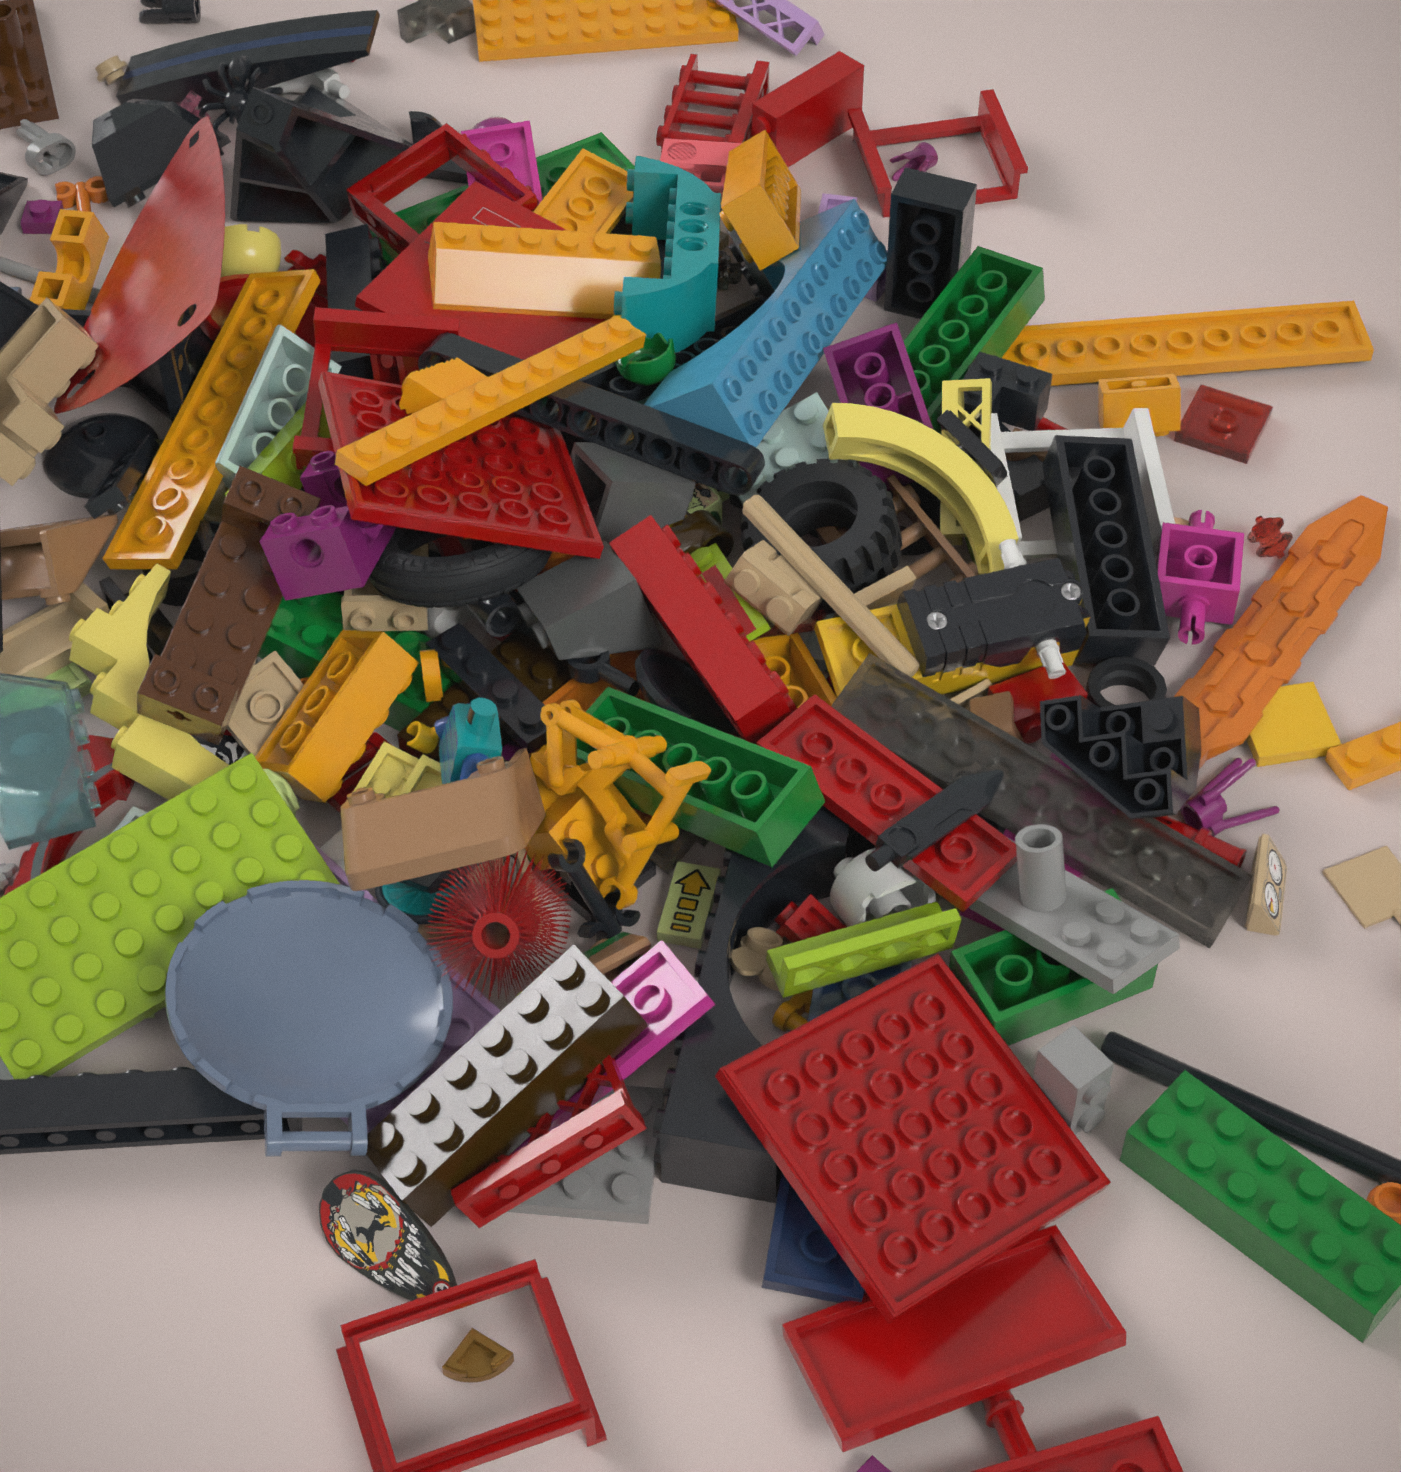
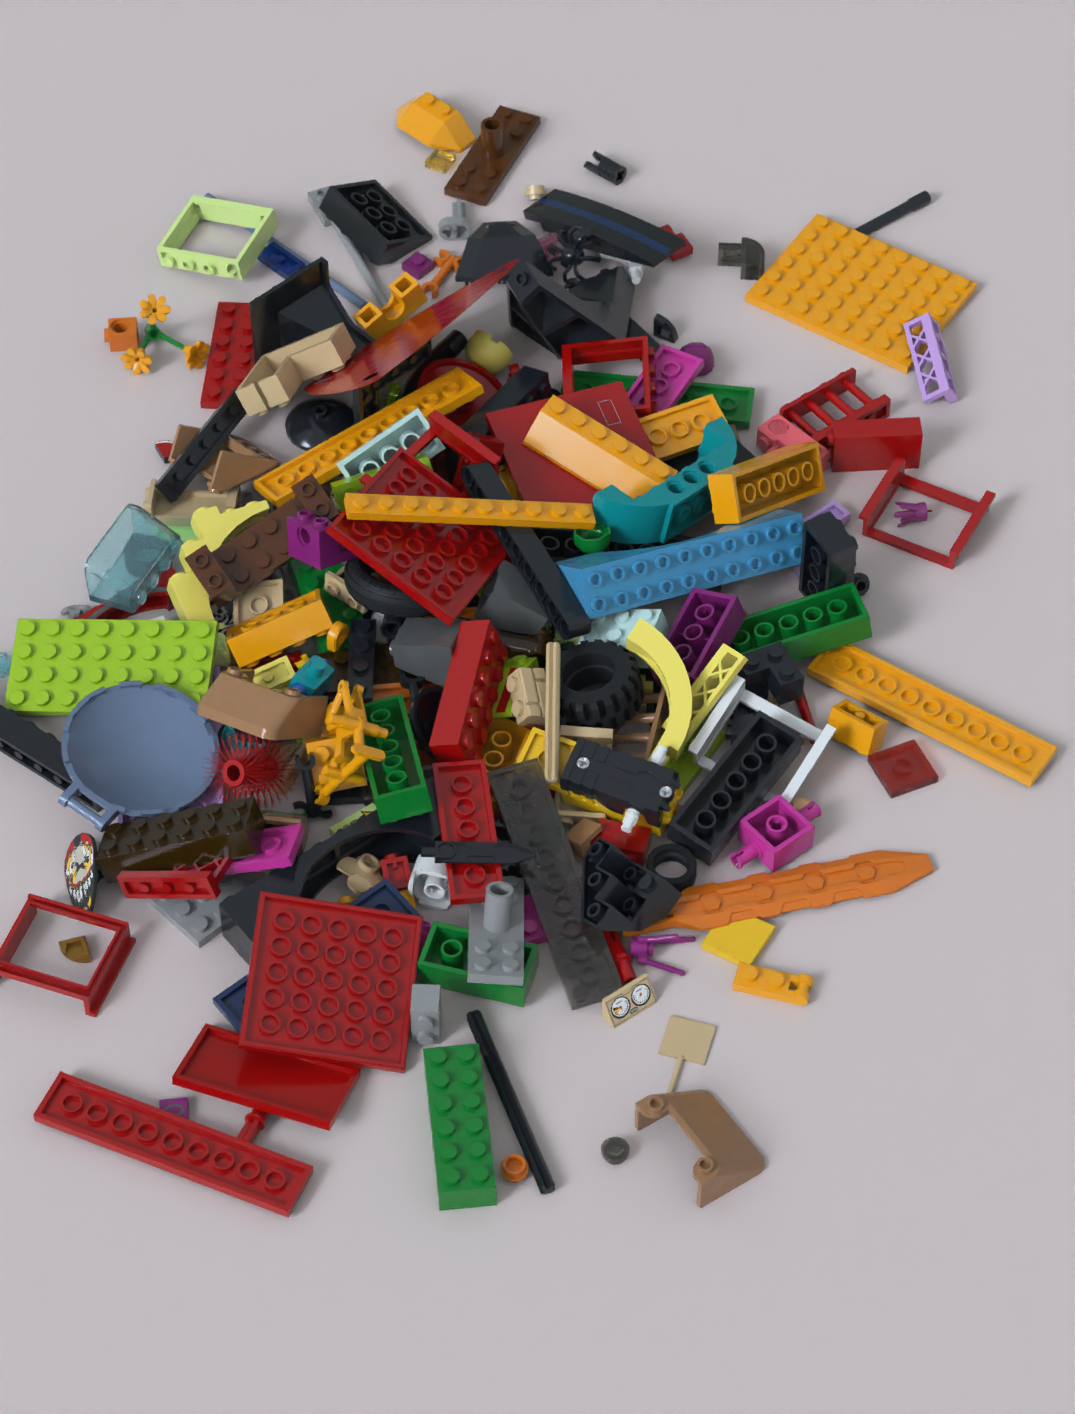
camera: 40 degrees right, 0 degrees up
(122, 478) = (294, 446): black plate -> none
(436, 383) = (448, 486): light orange brick -> none
(862, 948) = (395, 892): lime fence -> none
(973, 446) = (702, 688): black plate -> none
(1270, 537) = (843, 841): clear red wheel -> none

